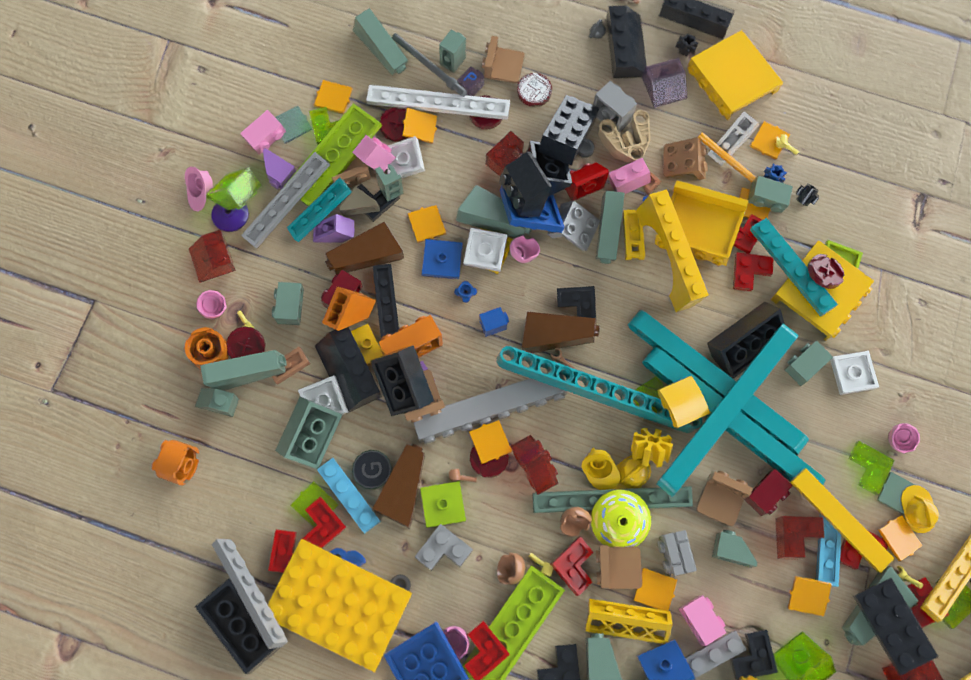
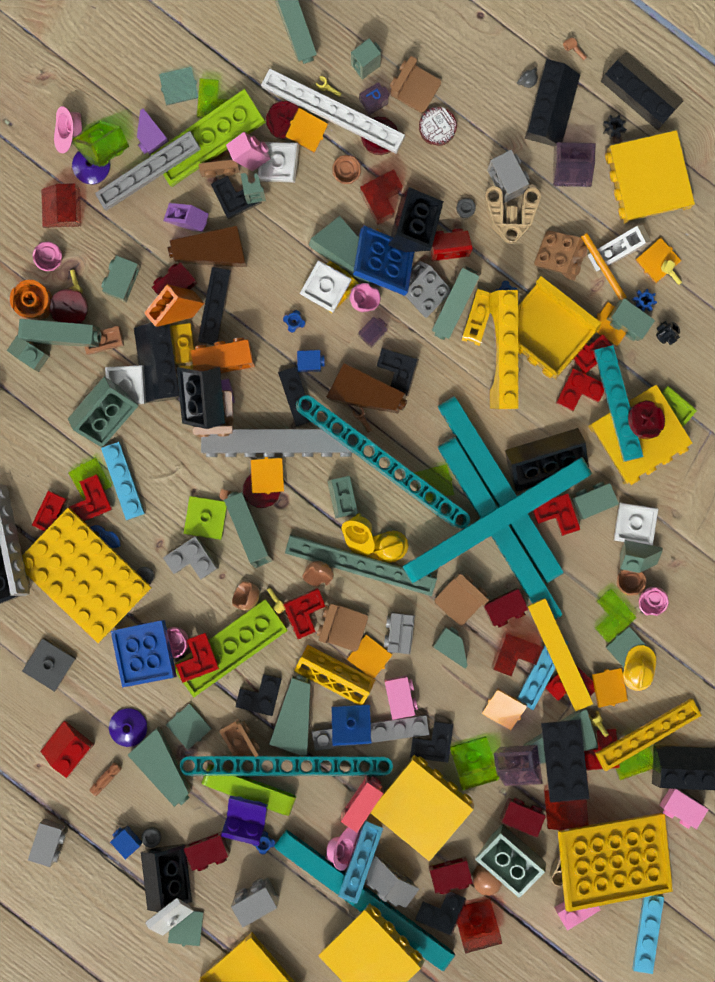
camera: 20 degrees right, 15 degrees up
(263, 132) = (147, 88): bright pink brick -> none
(319, 209) = (177, 192): teal plate -> none
(333, 96) = (230, 68): light orange piece -> none
(358, 203) = (217, 198): dark tan slope -> none
(371, 469) = (151, 464): black tile -> none
(401, 490) = (173, 490): reddish brown slope -> none
(422, 86) = (325, 86): none -> light yellow hand
(426, 223) = (279, 237): light orange piece -> none
(442, 259) = (282, 280): blue plate -> none
(450, 82) = (352, 94): dark grey bar -> none
(468, 145) = (346, 169): none -> nougat hair
(487, 355) = (294, 391): none -> black plate
(491, 500) = (247, 530): none -> sand green slope
(526, 185) = (382, 238): black slope -> none
(535, 463) = (300, 510): clear red brick -> none
(543, 277) = (373, 331): none -> clear purple brick
(568, 130) = (451, 187): black brick -> none
(570, 438) = (342, 497): none -> sand green hinge
(607, 516) = (365, 574): neon yellow dish -> none
(630, 176) = (495, 257): bright pink brick -> none
(650, 187) = (517, 266): nougat tile -> none
(651, 447) = (412, 531): yellow gear -> none
(683, 401) = (457, 500): yellow slope -> none
(782, 382) = (562, 511): none -> red plate
(852, 648) = (518, 765): none -> slope
(870, 400) = (639, 556): none -> sand green slope
(875, 426) = (631, 582): none -> nougat hair

